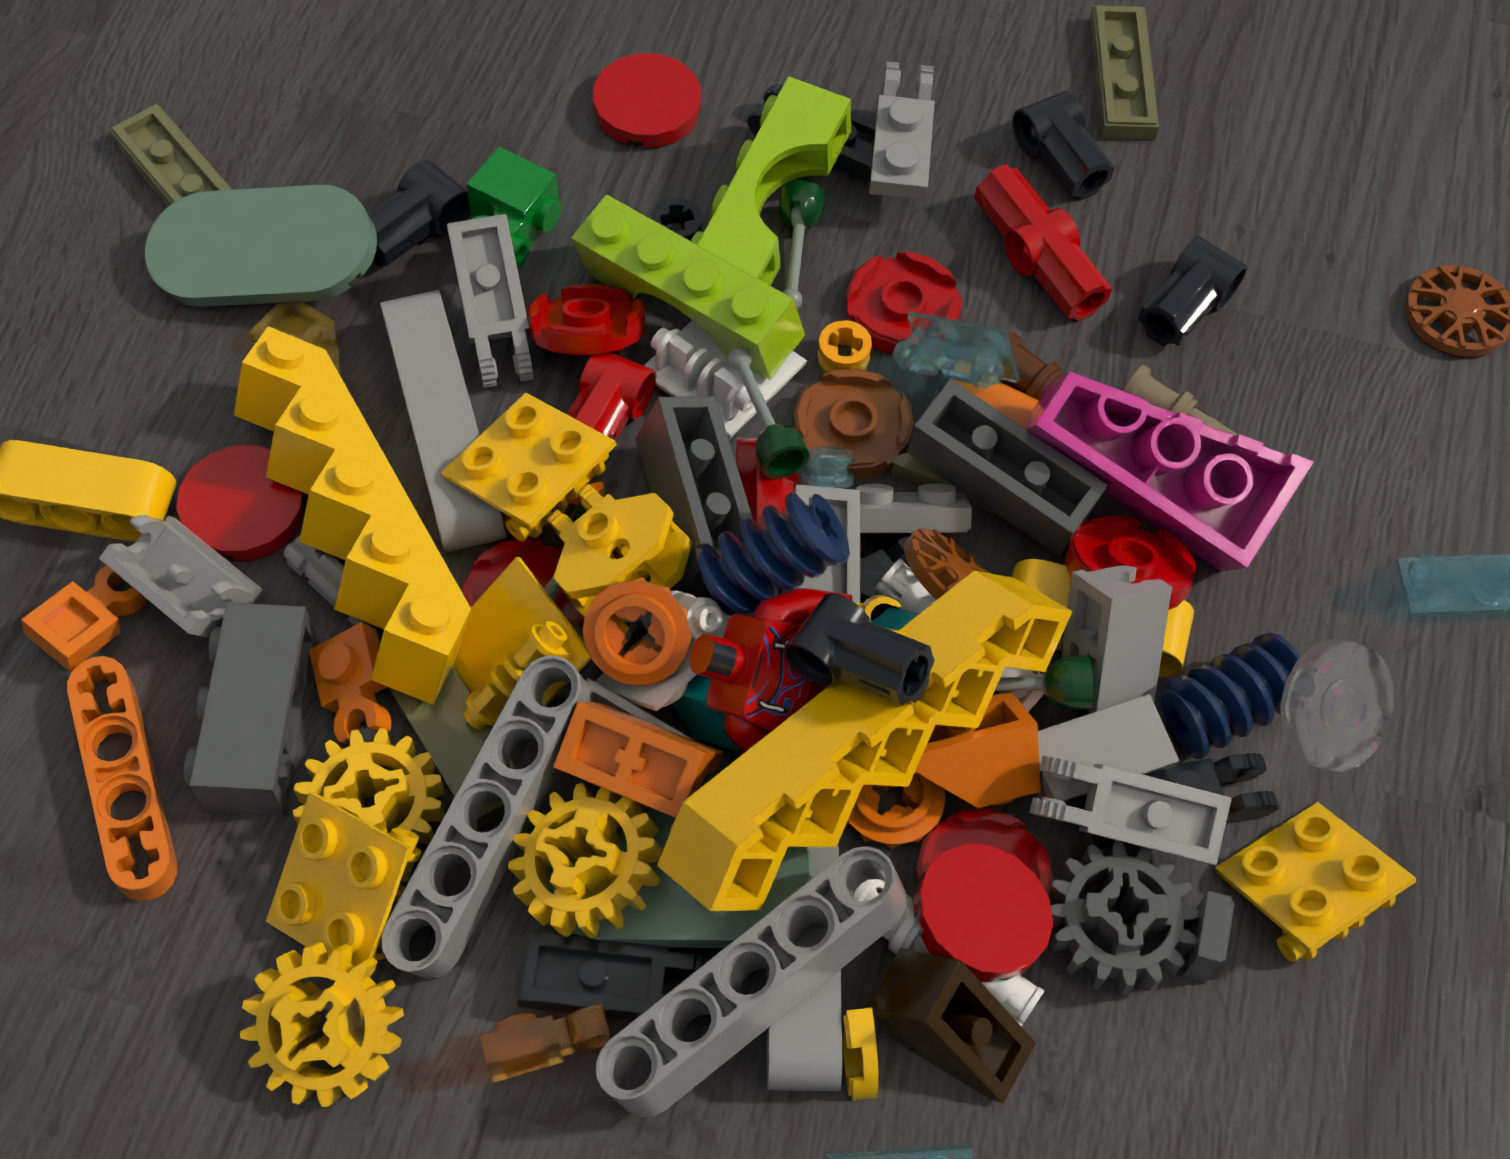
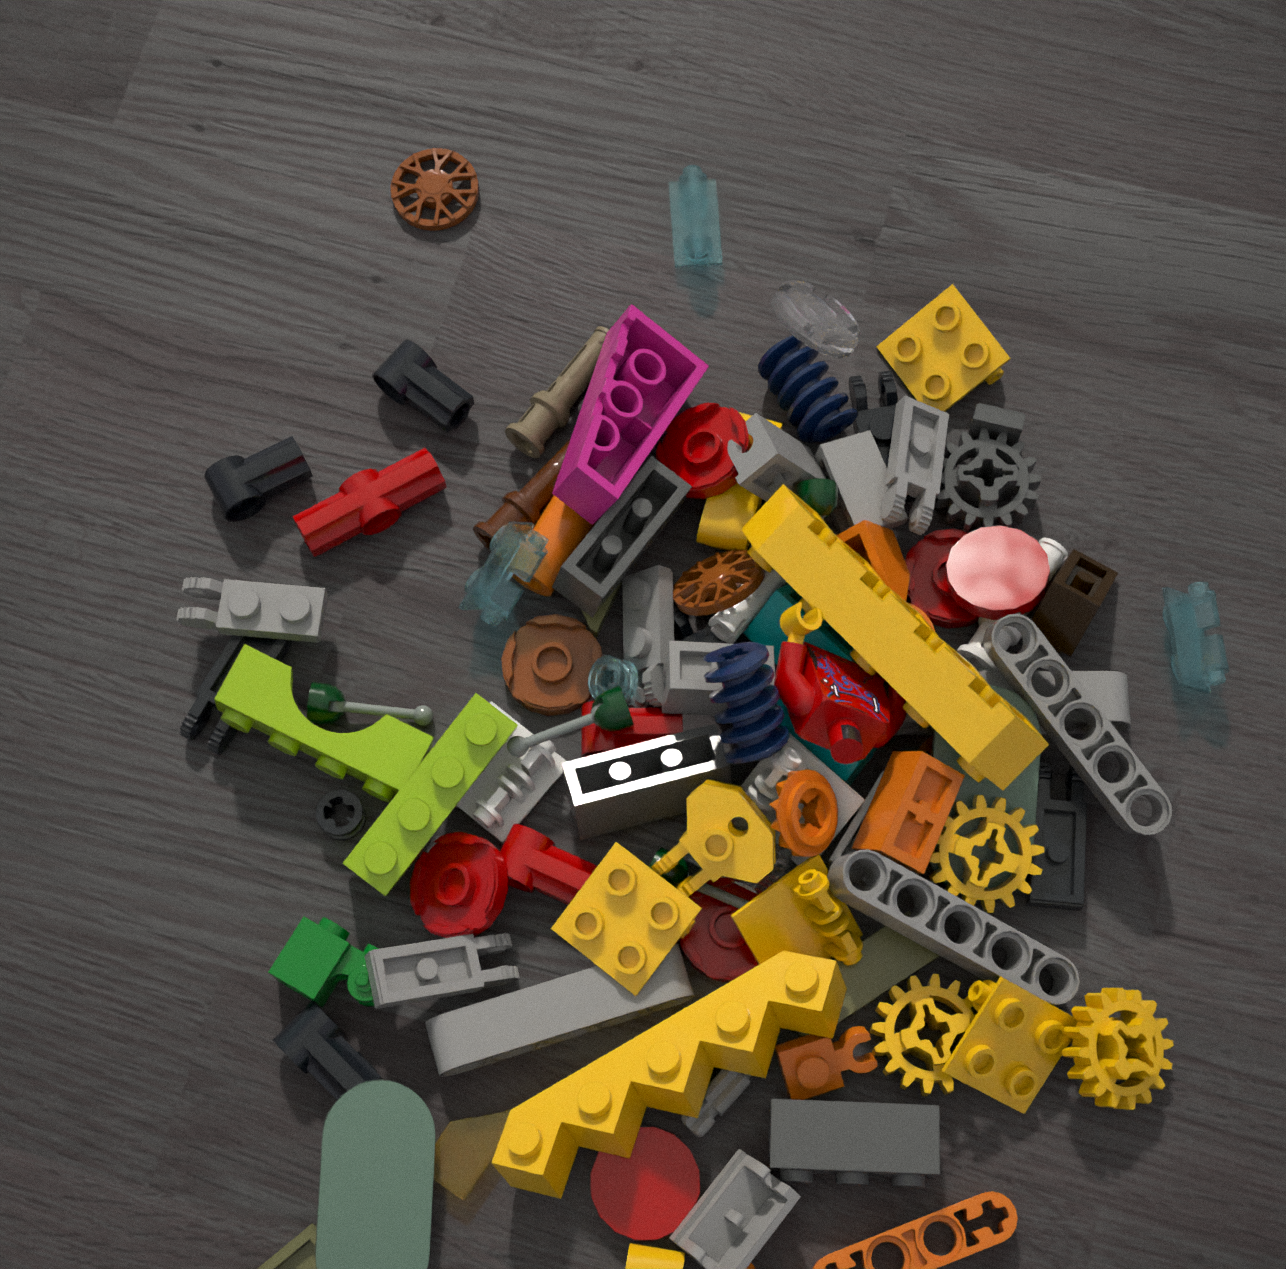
camera: 85 degrees left, 10 degrees up
(530, 1043) = (1114, 895): clear orange plate -> none
(647, 100) = (185, 847): red tile -> none
(847, 646) = (842, 643): black piece -> none
(848, 334) = (468, 659): light orange bush -> none
(860, 1054) = (1096, 660): yellow tile -> none
(891, 288) = (423, 623): red tile -> none
(1123, 73) = (165, 424): olive tile -> none

